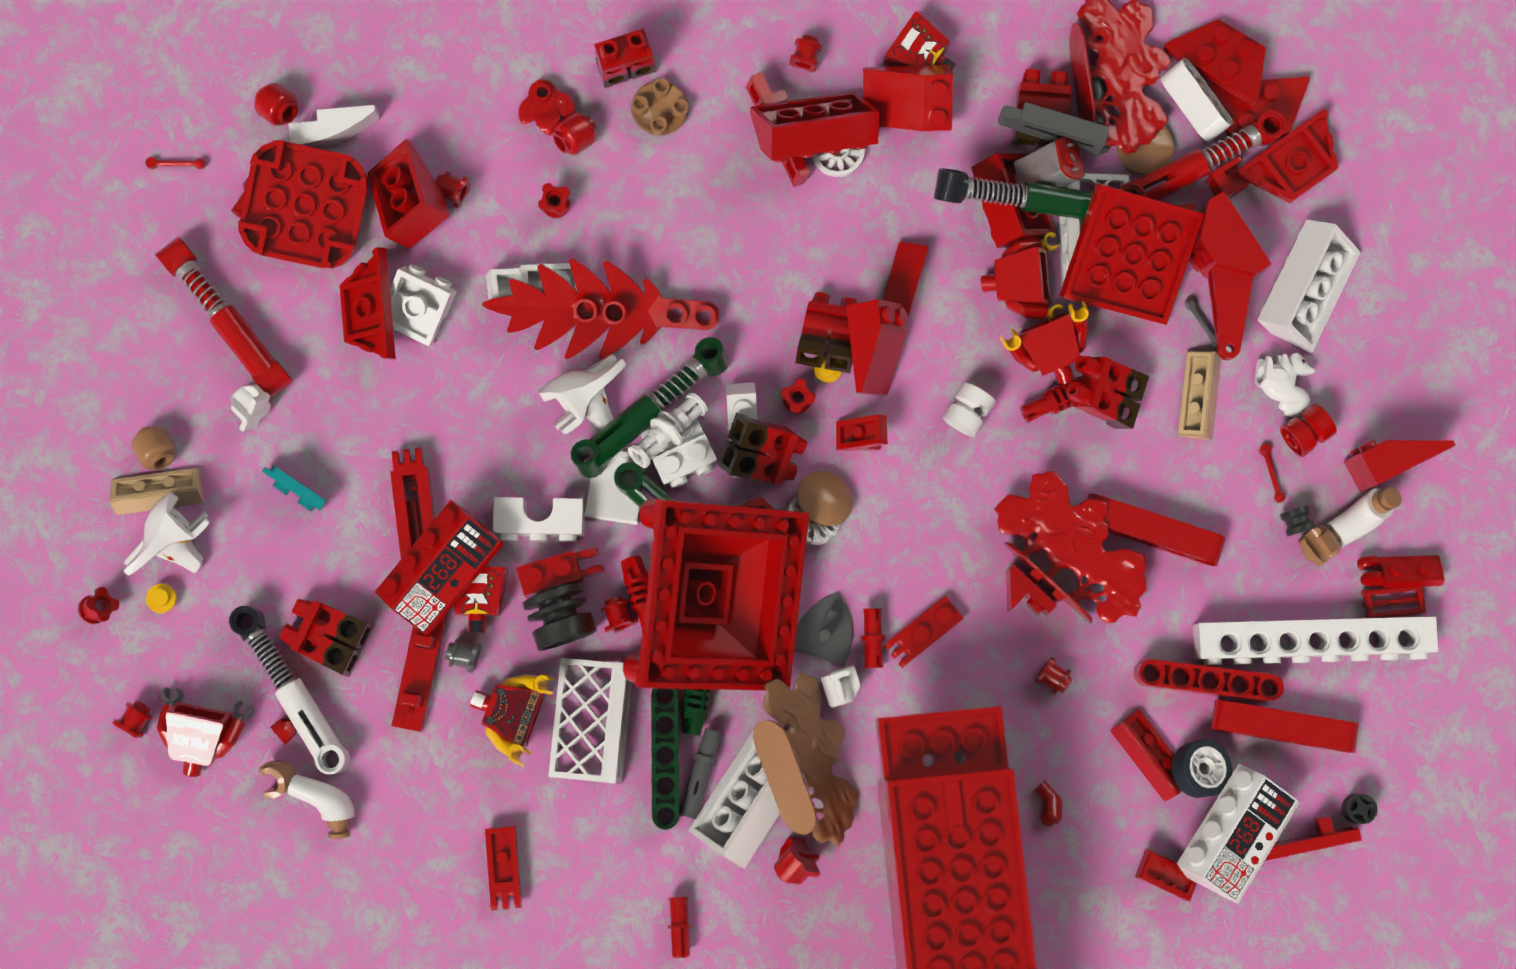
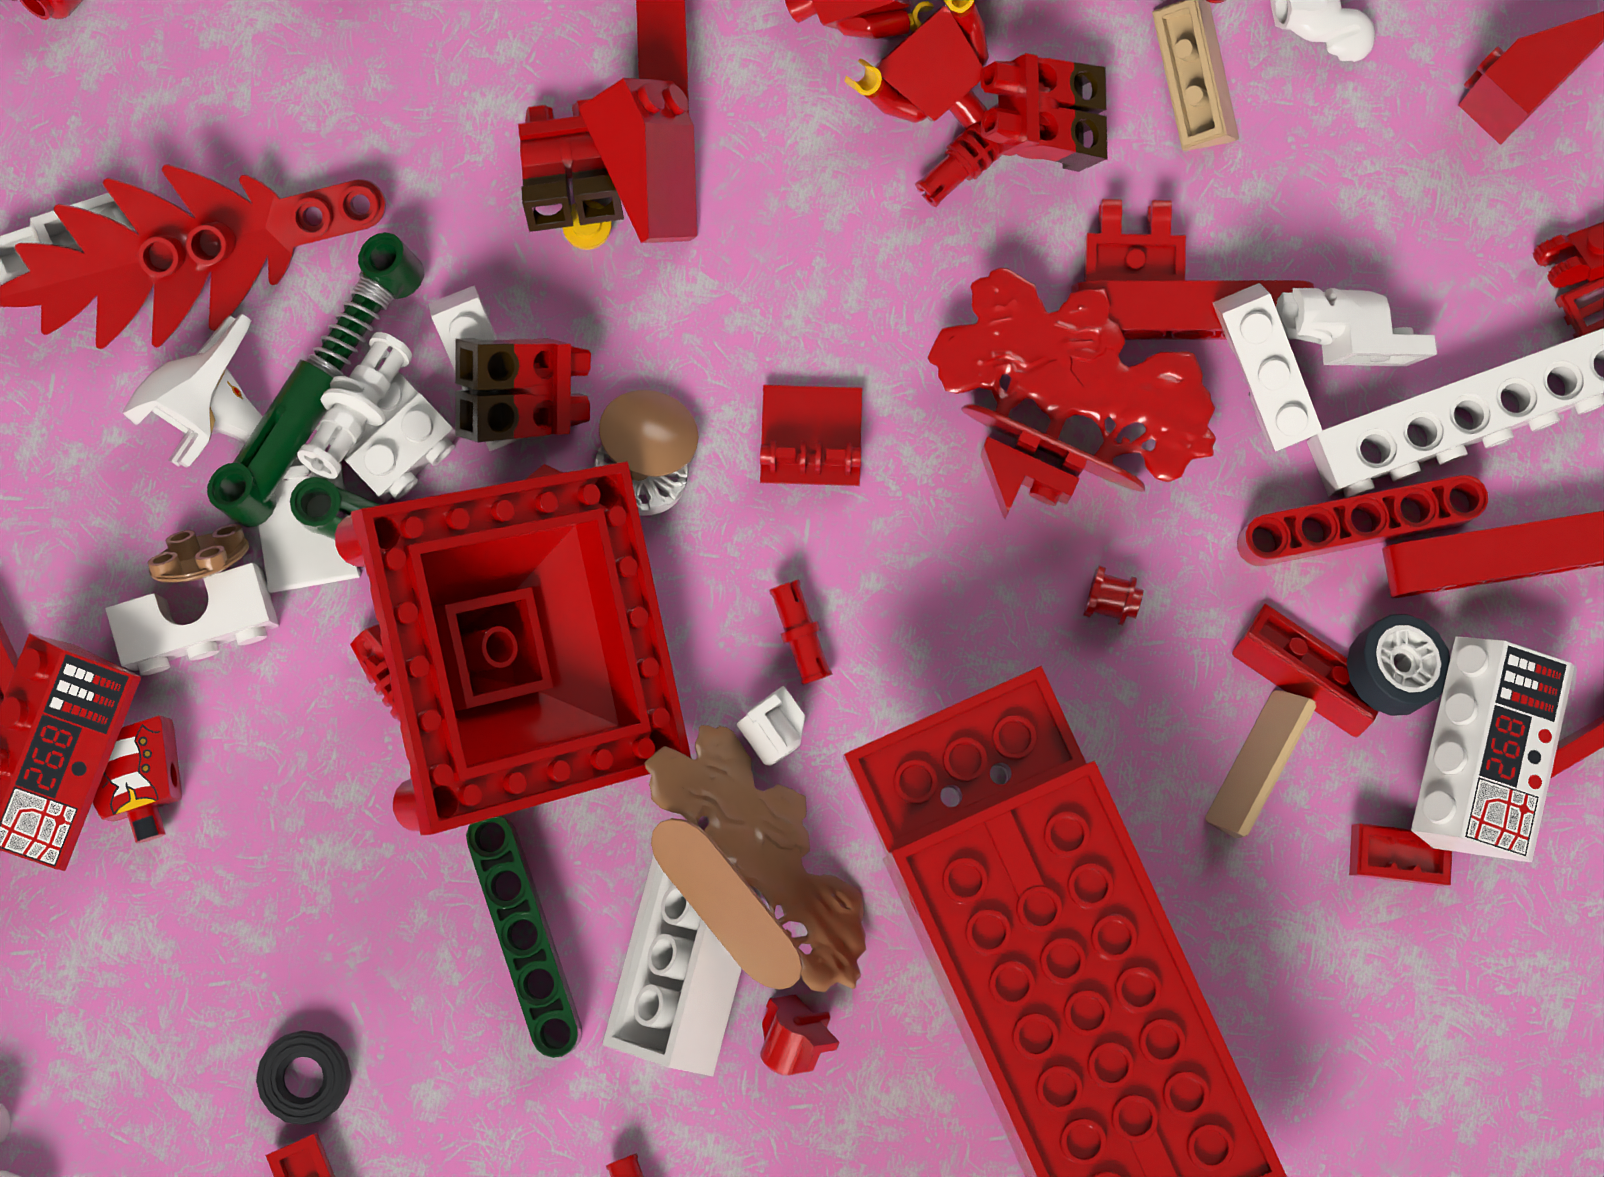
camera: 15 degrees left, 0 degrees up
(418, 678) = (79, 942): red hinge -> none
(463, 655) = (139, 882): dark grey brick -> none
(500, 797) = (272, 1072): none -> black tyre
(512, 712) = (250, 949): torso -> none
(552, 194) = (47, 92): red brick -> none
(554, 484) = (198, 557): none -> medium nougat dish
(556, 571) = (248, 697): red hinge -> none
(559, 616) = (270, 759): pearl dark grey wheel -> none
(615, 728) = (429, 921): white fence -> none
(618, 615) = (372, 732): red brick -> none
(694, 710) = (549, 843): dark green hinge -> none
(701, 771) = (592, 942): dark grey pin -> none
(798, 388) = (547, 273): red brick -> none
(826, 630) = (721, 646): dark grey shield -> none
(862, 433) = (675, 309): red slope -> none
(915, 529) = (811, 435): none -> red hinge
(925, 630) = (881, 593): red hinge -> none
(968, 410) = (836, 207): white wheel -> none
(1053, 804) = (1180, 804): red arm -> none
(1105, 797) = (1260, 763): none -> tan slope
(1128, 488) = (1134, 256): none -> red plate
(1184, 577) = (1268, 366): none -> white arch
(1237, 570) = (1351, 327): none -> white plate
(1265, 451) = (1329, 128): red hinge -> none
(1297, 520) = (1417, 220): pearl dark grey wheel -> none
(1312, 427) = (1390, 65): red wheel -> none
(1354, 523) = (1505, 199): piece -> none

